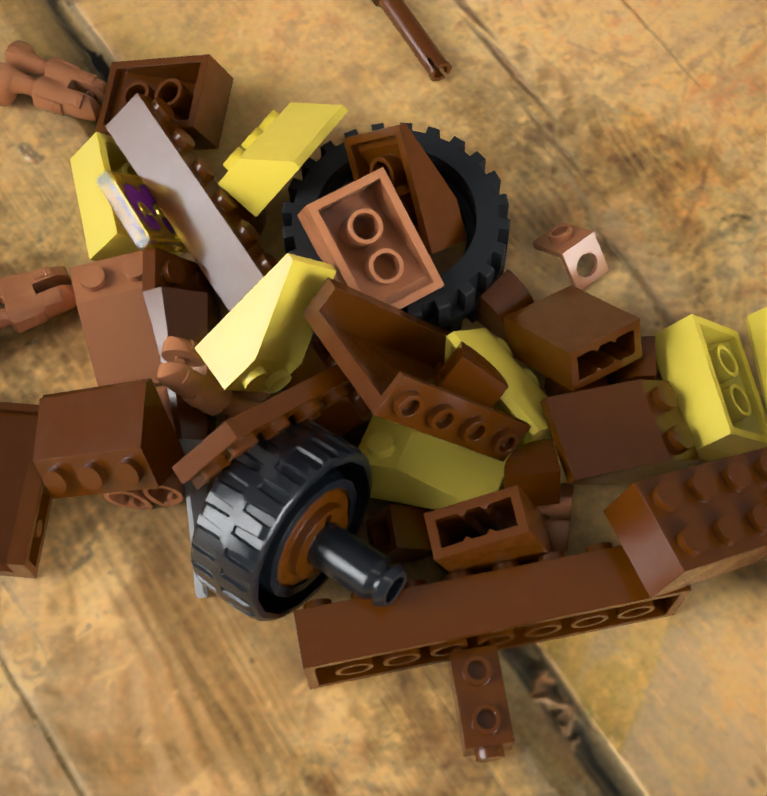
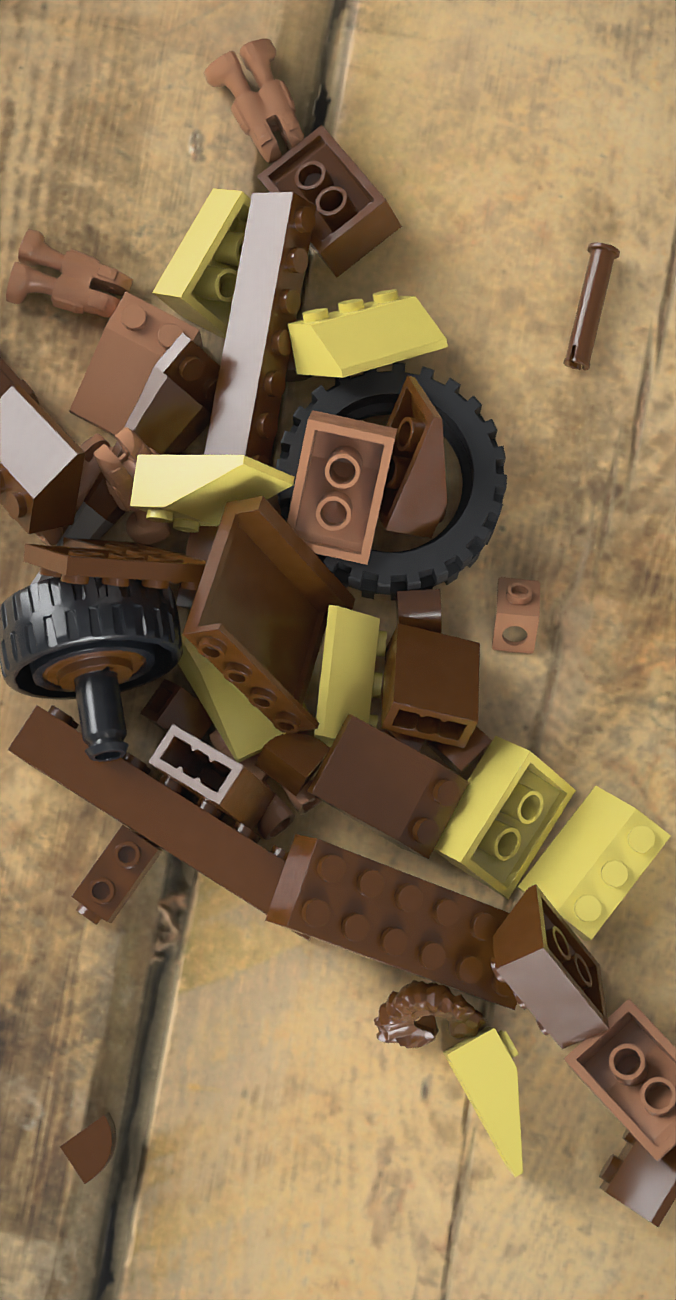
camera: 40 degrees right, 15 degrees up
(139, 212) = (208, 295): clear yellow tile -> none
(471, 376) = (306, 656): reddish brown brick -> none

